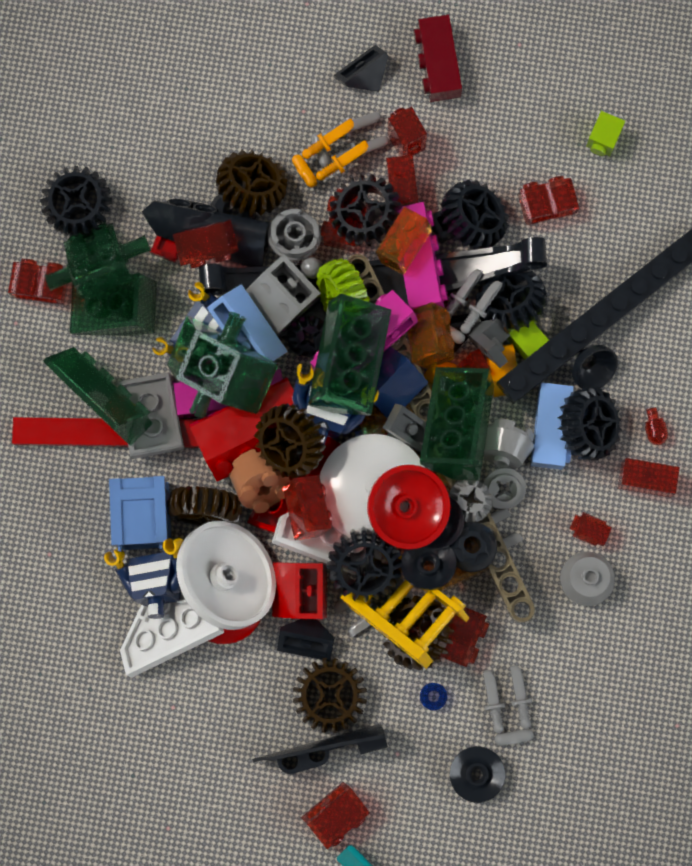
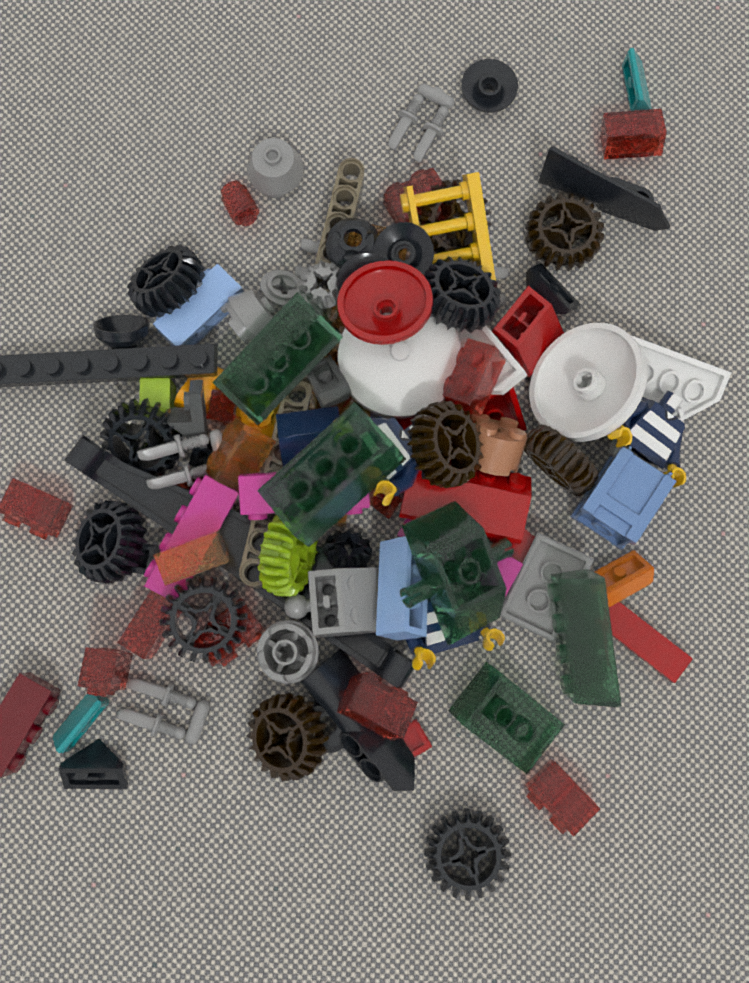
camera: 145 degrees left, 0 degrees up
(97, 261) = (494, 771): clear green slope -> none
(101, 461) = (626, 576): none -> orange slope
(338, 163) = (188, 723): light orange piece -> none
(400, 86) = (79, 722): none -> teal slope
(429, 704) = (479, 163): clear blue plate -> none
(648, 477) = (156, 207): clear red brick -> none
(656, 427) = (114, 246): clear red cylinder -> none

